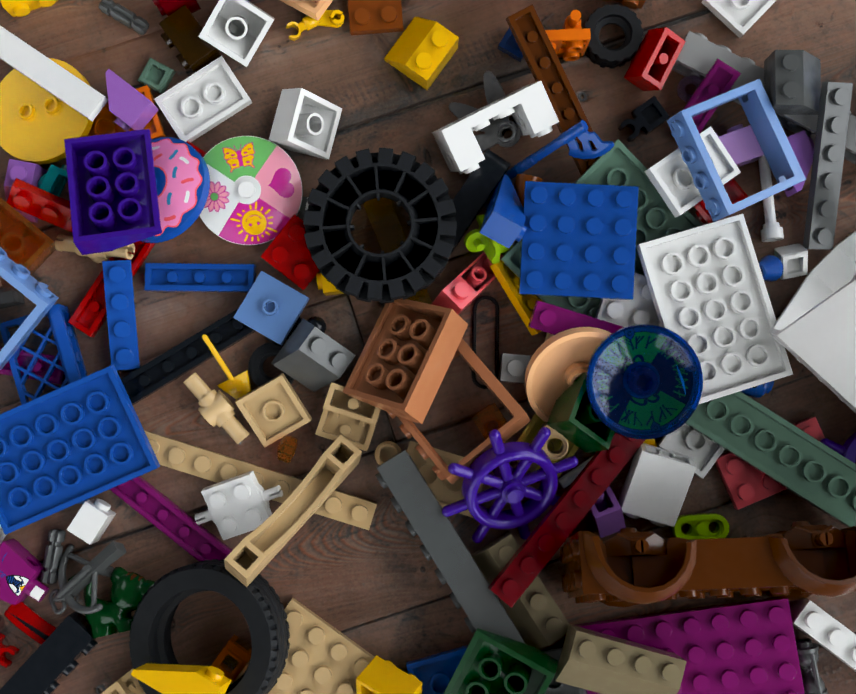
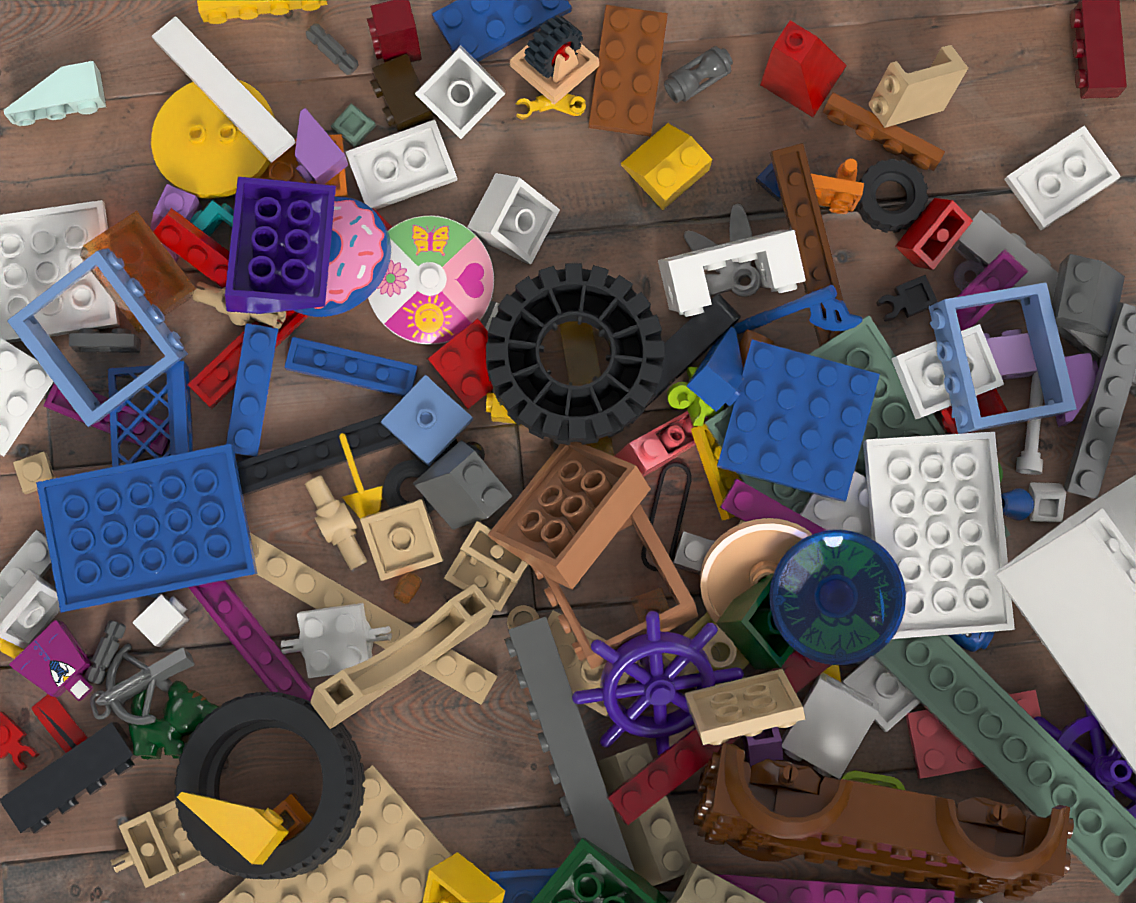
camera: 10 degrees right, 5 degrees down
(588, 493) = (744, 707): none -> tan plate

